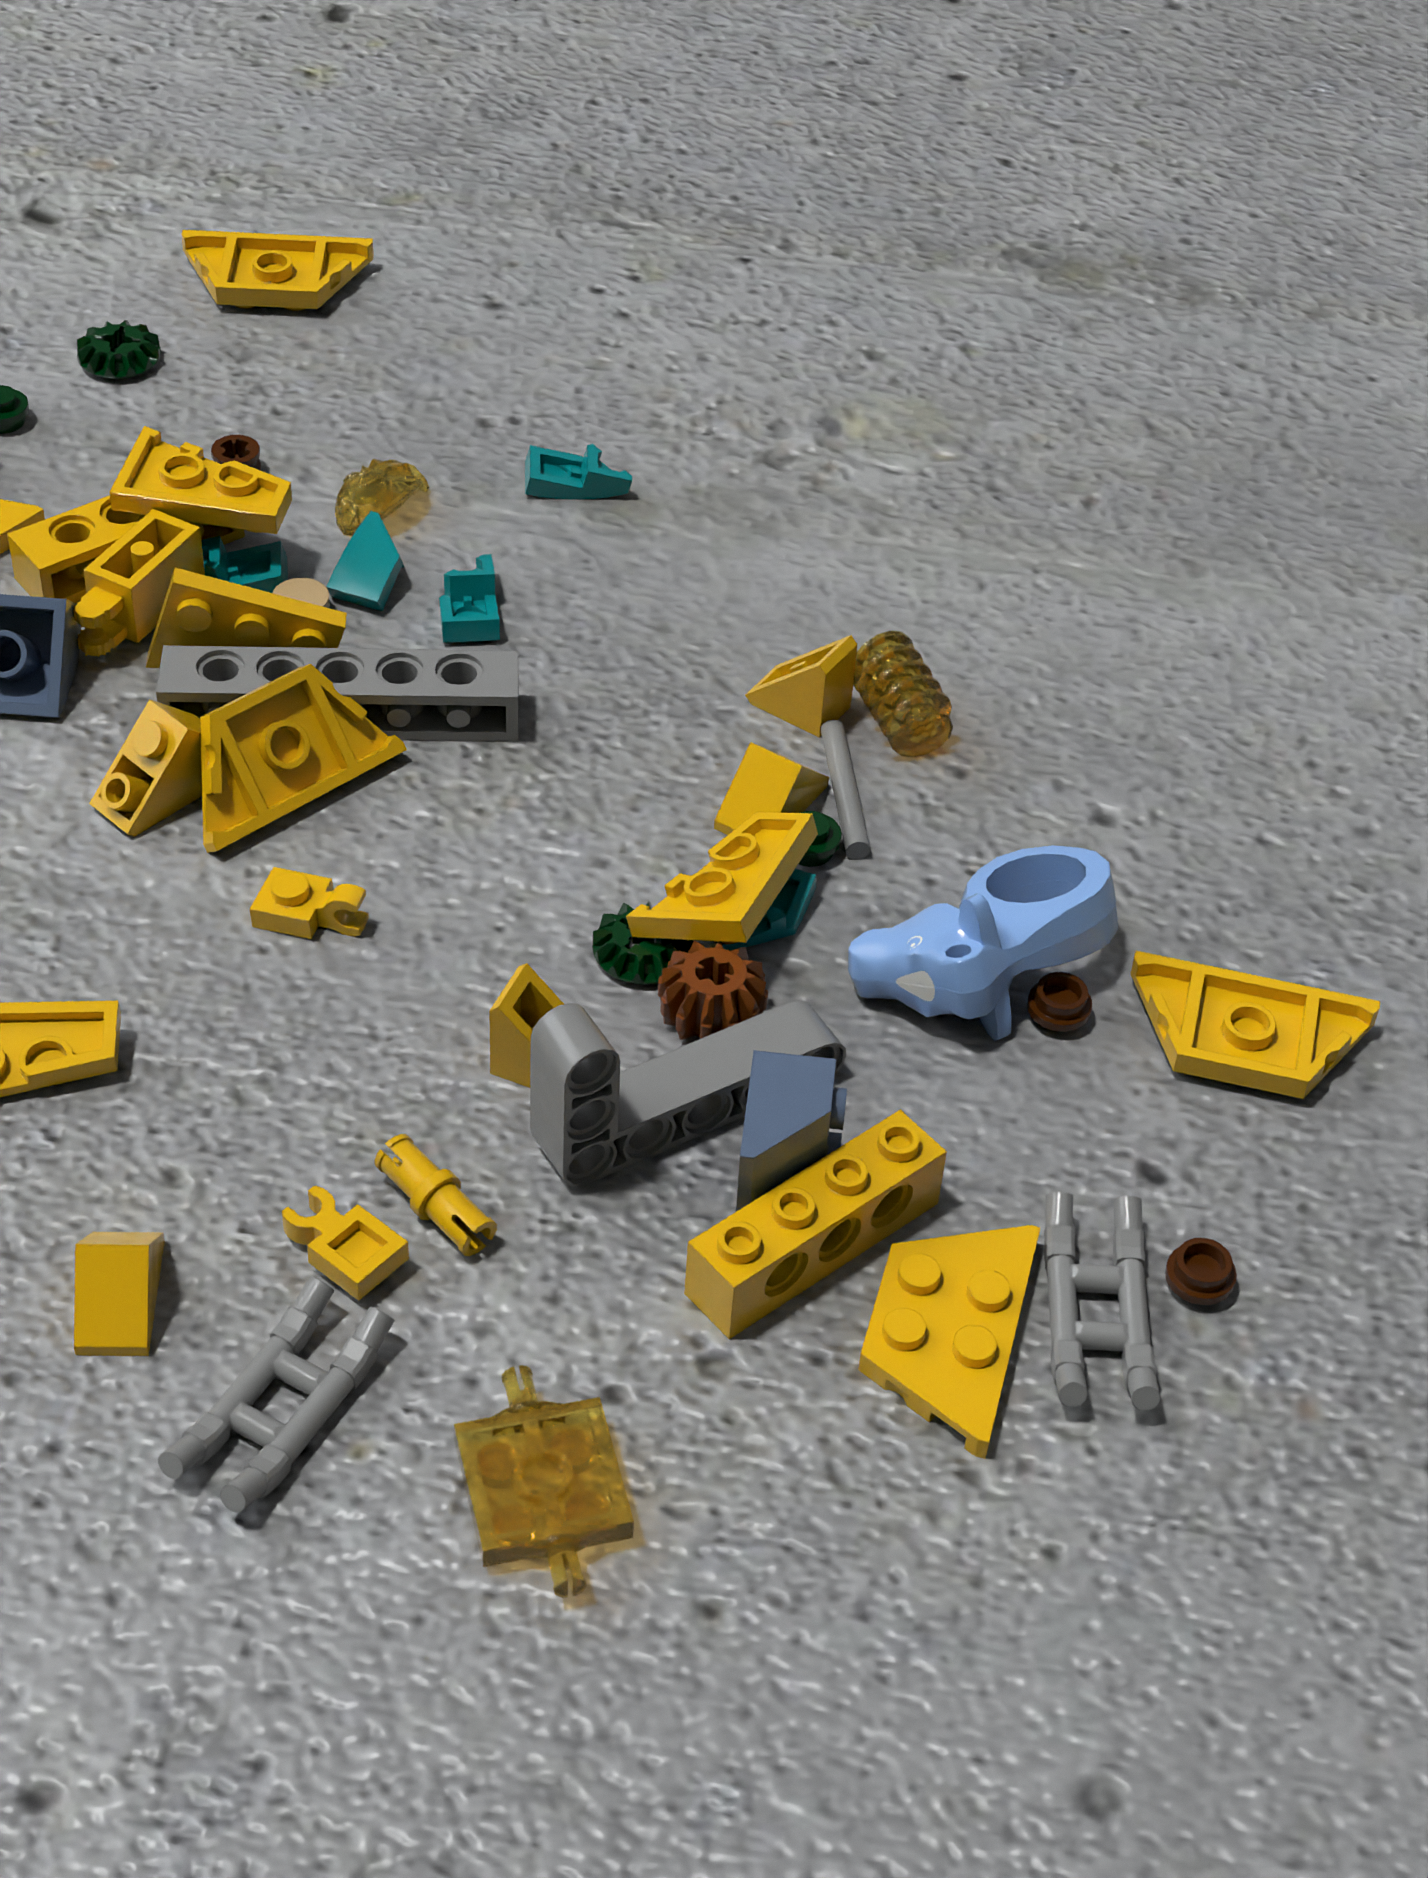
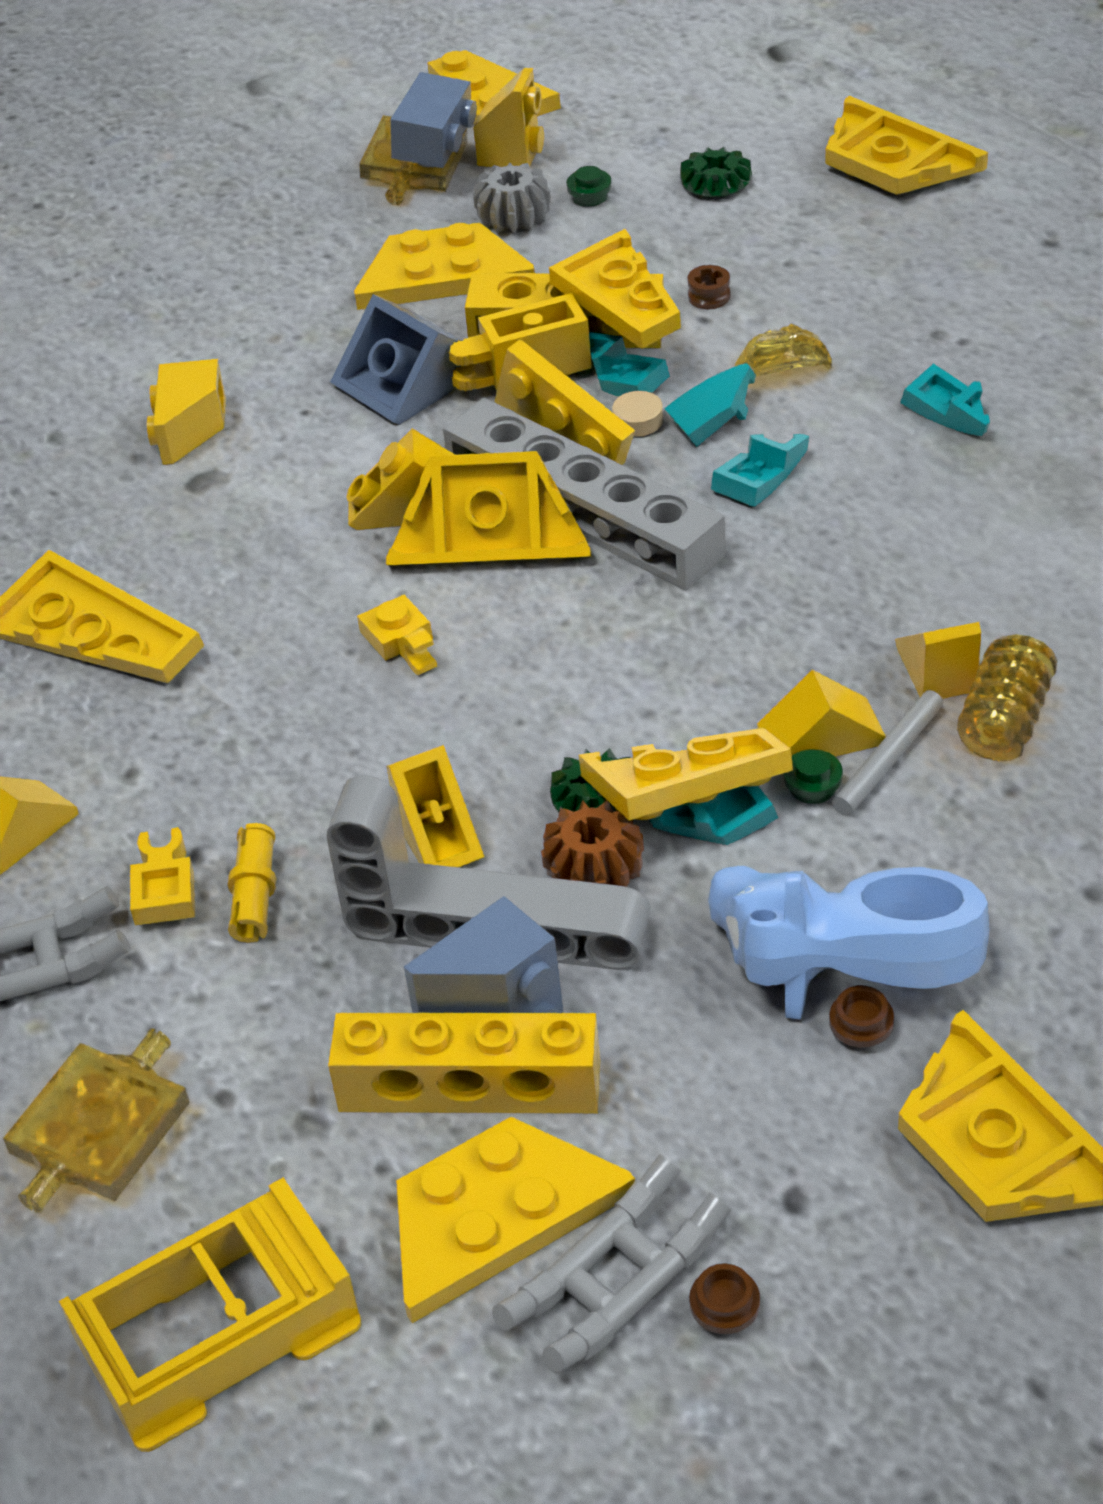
camera: 50 degrees right, 0 degrees up
(820, 1656) = (308, 1317): none -> yellow piece

